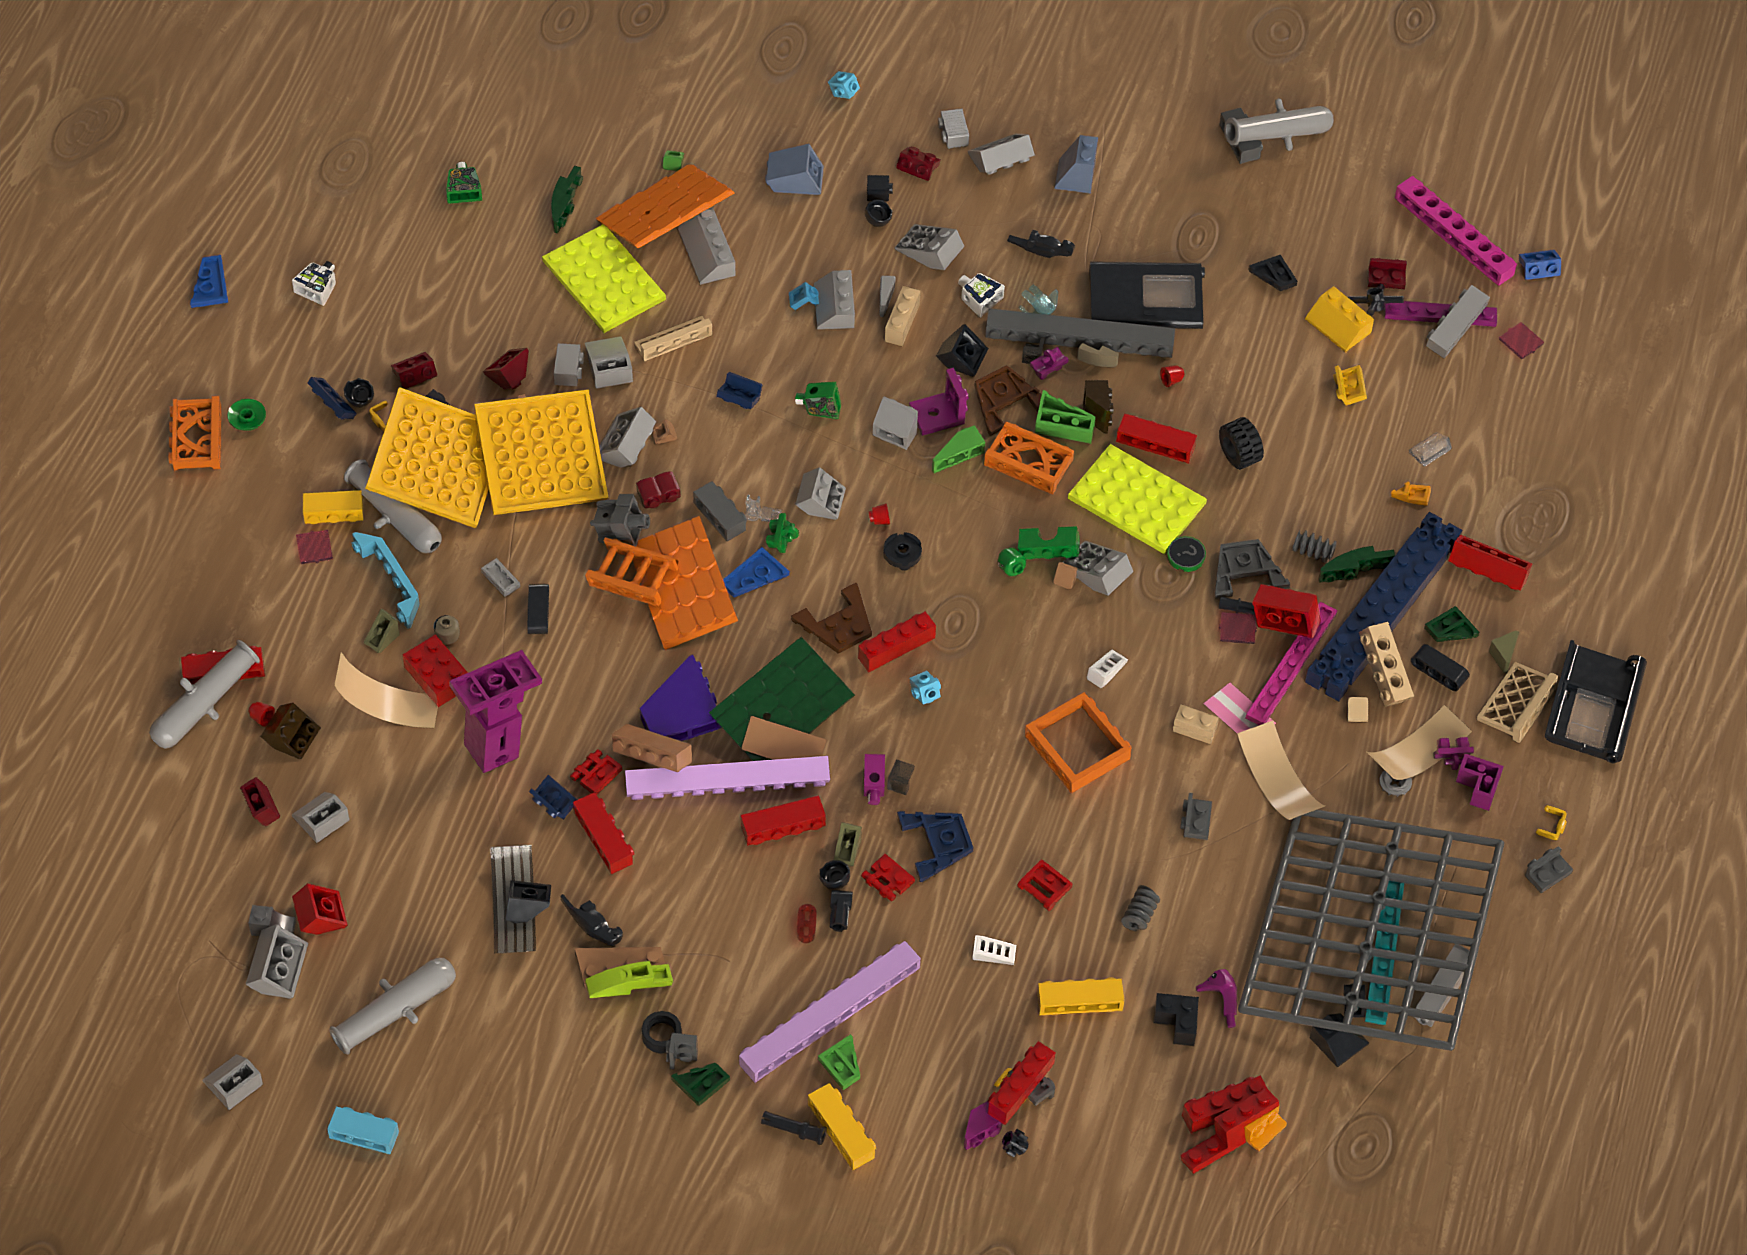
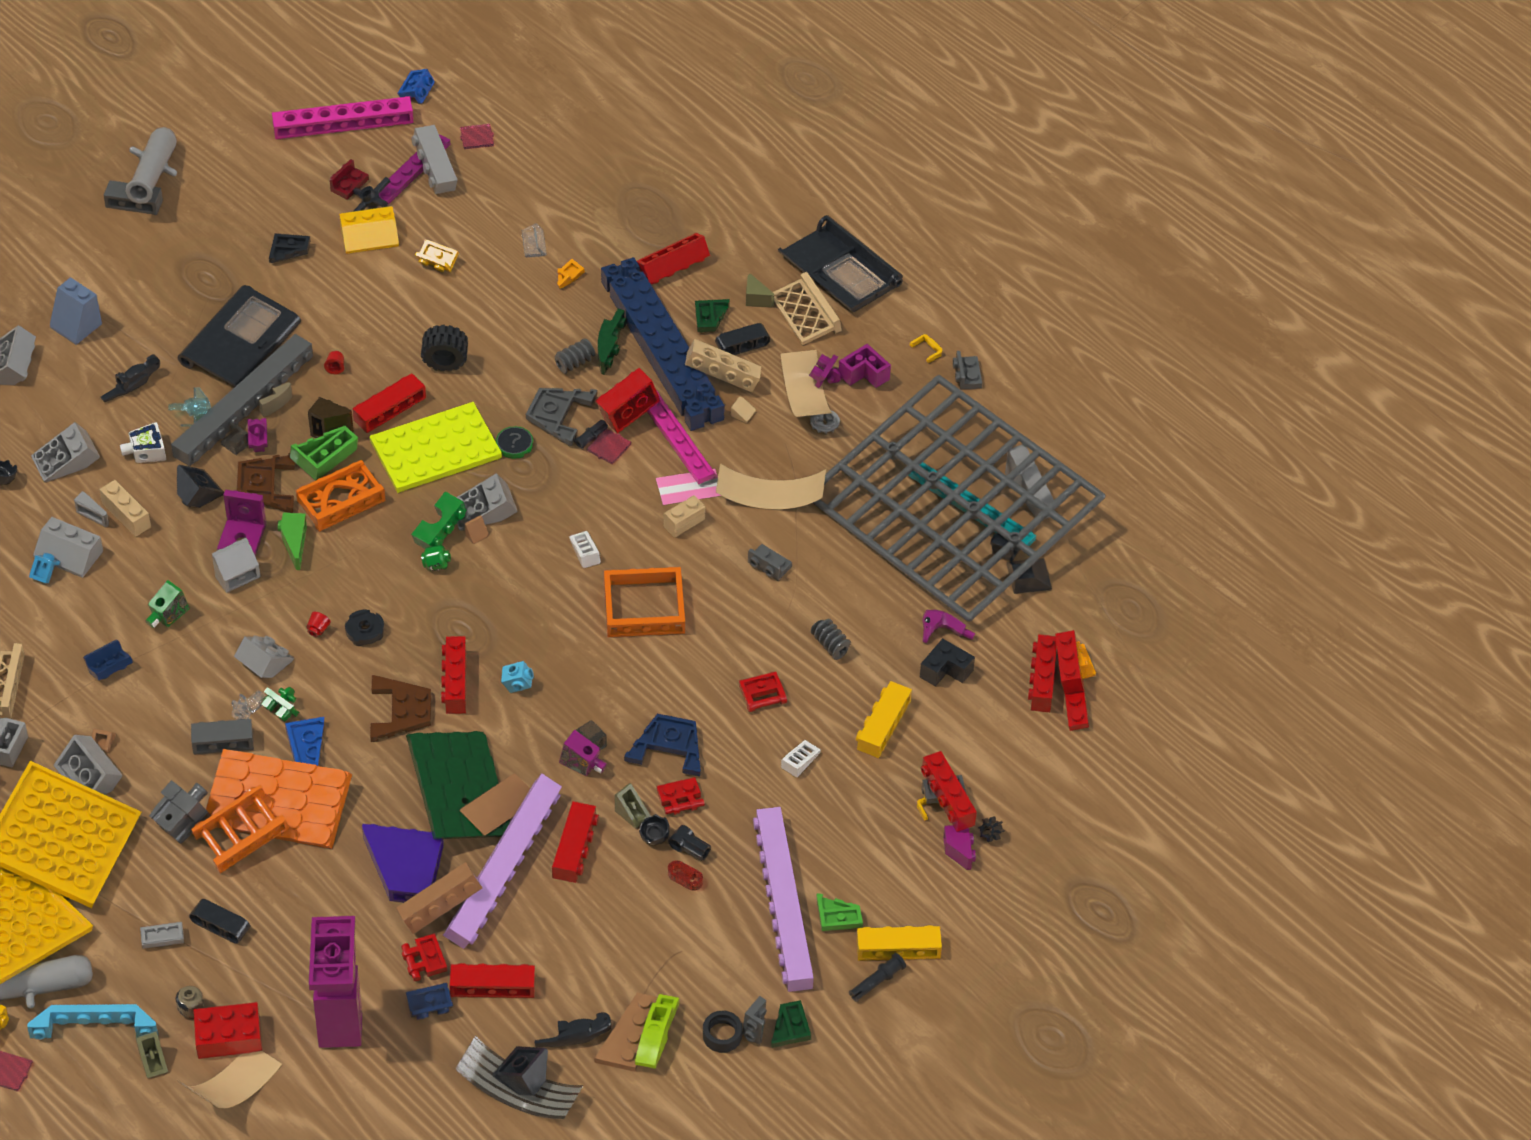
camera: 60 degrees left, 5 degrees down
(658, 490) = (164, 769): dark red brick -> none

